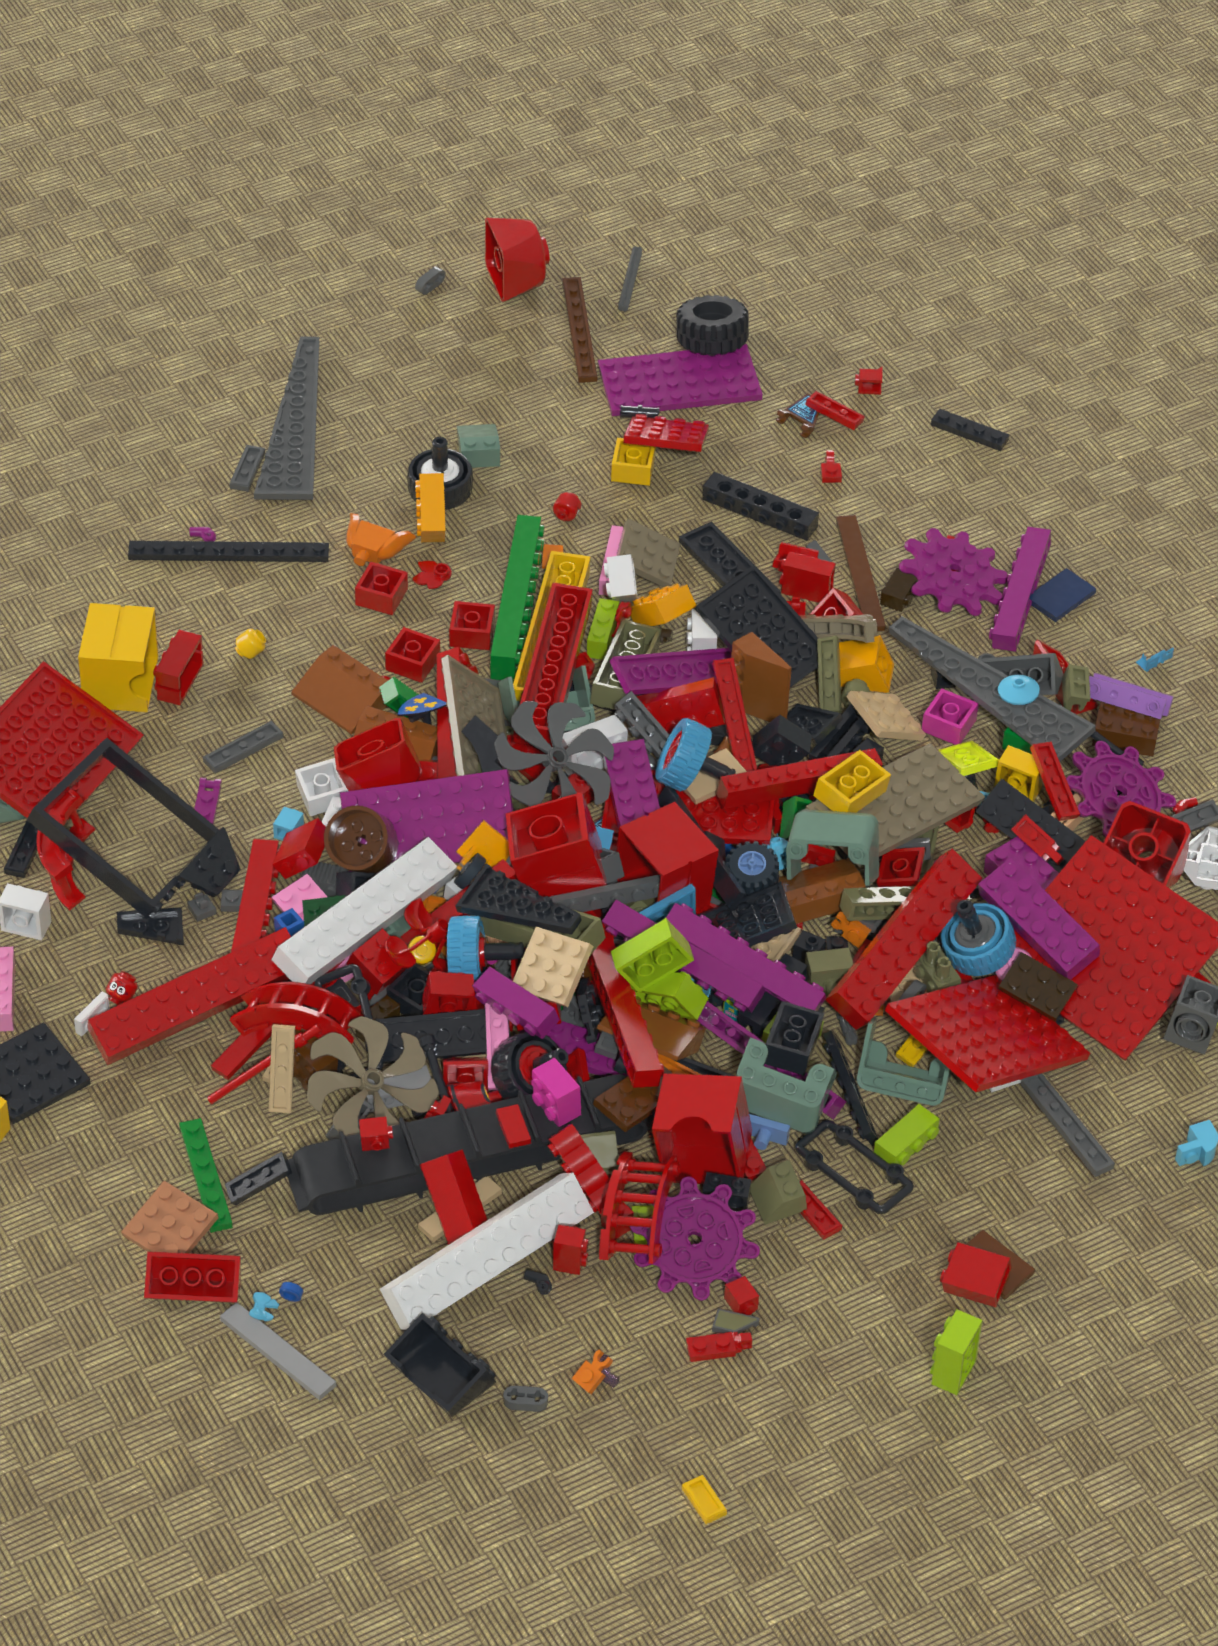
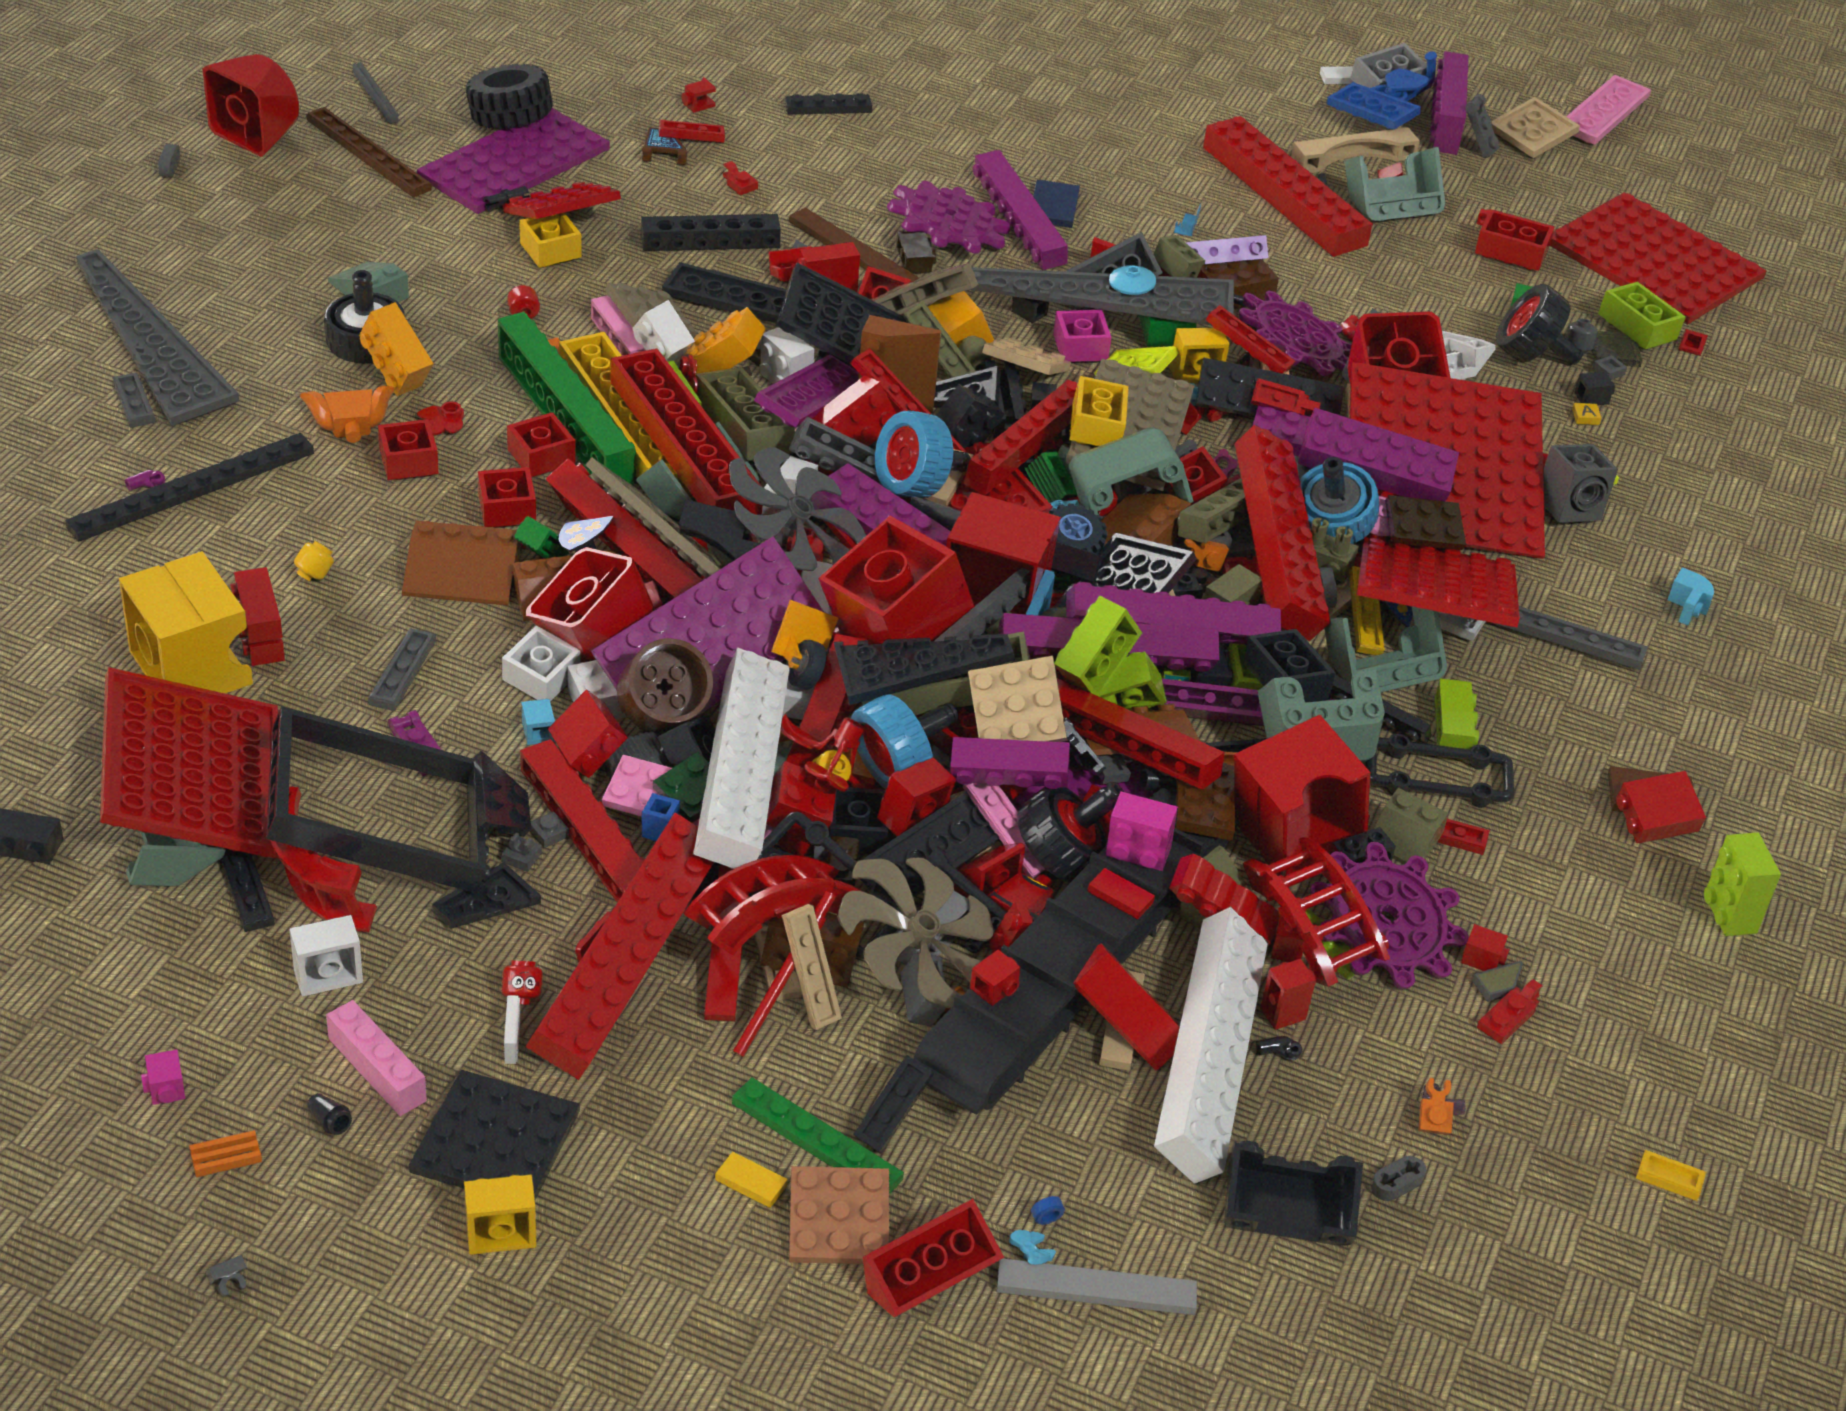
camera: 40 degrees left, 5 degrees down
(143, 1176) = (751, 1179): none -> yellow tile

